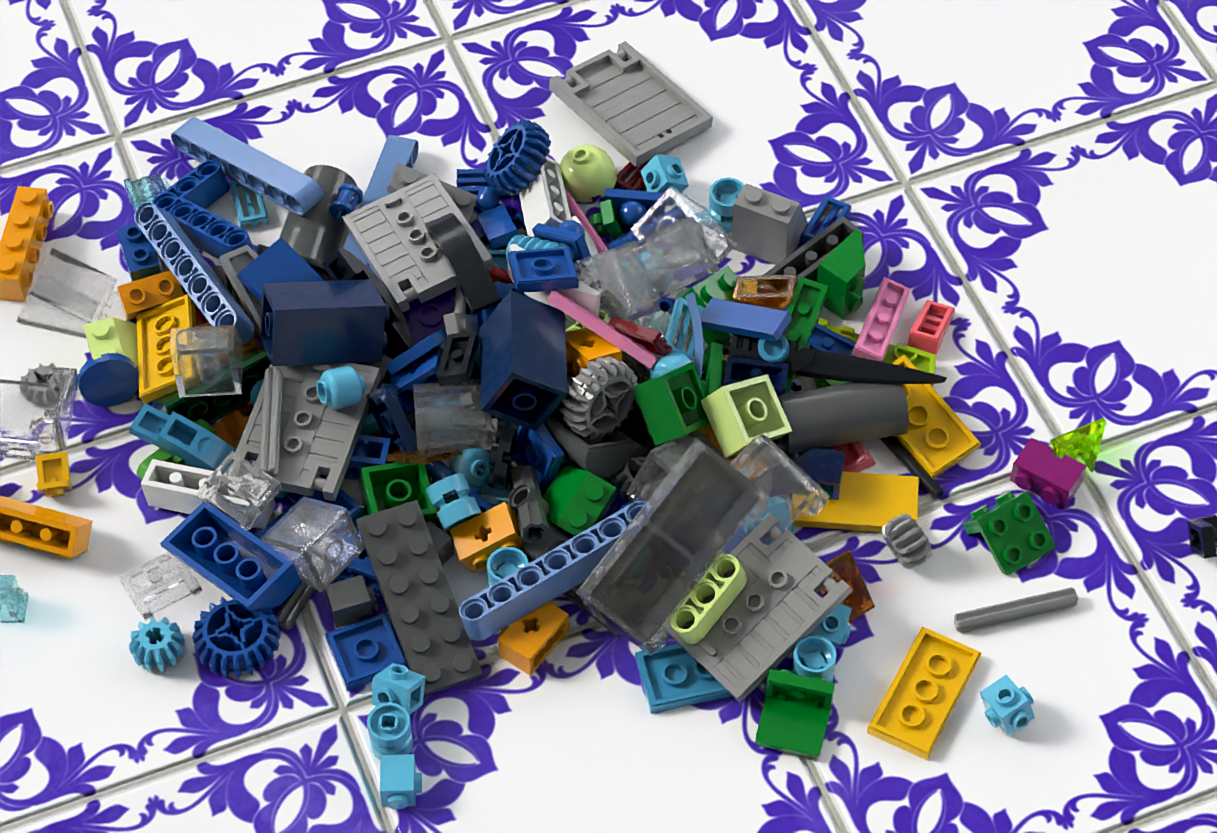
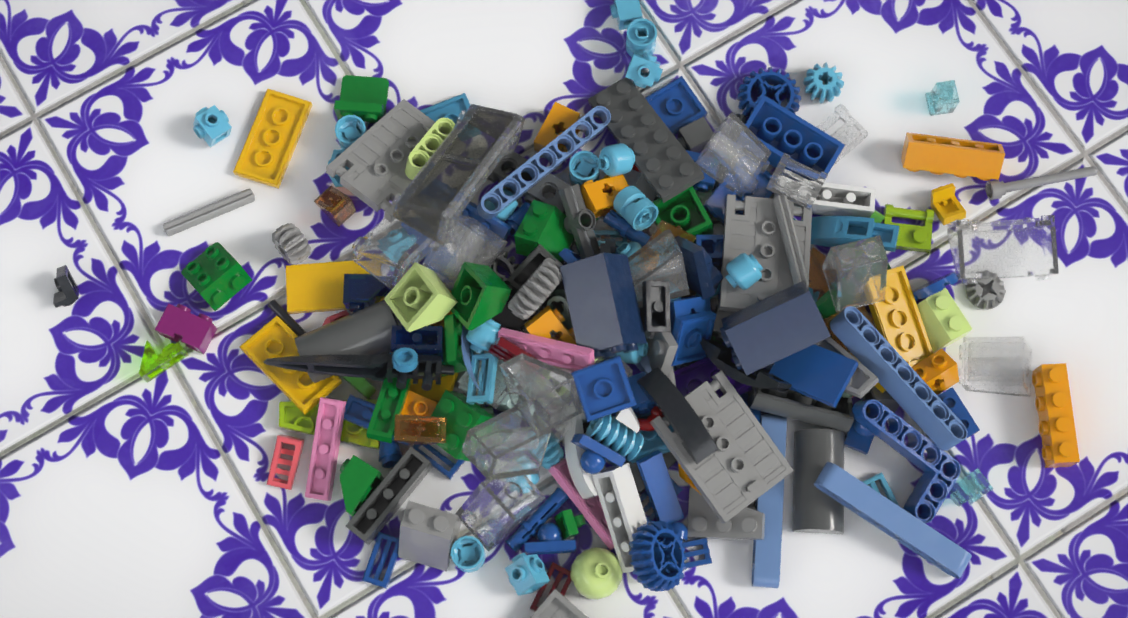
camera: 170 degrees right, 20 degrees up
(112, 455) = (911, 236): none -> lime plate
(346, 201) = (795, 490): blue bush -> none
(464, 563) = (616, 159): none -> medium azure head
(745, 319) = (431, 378): tile -> none

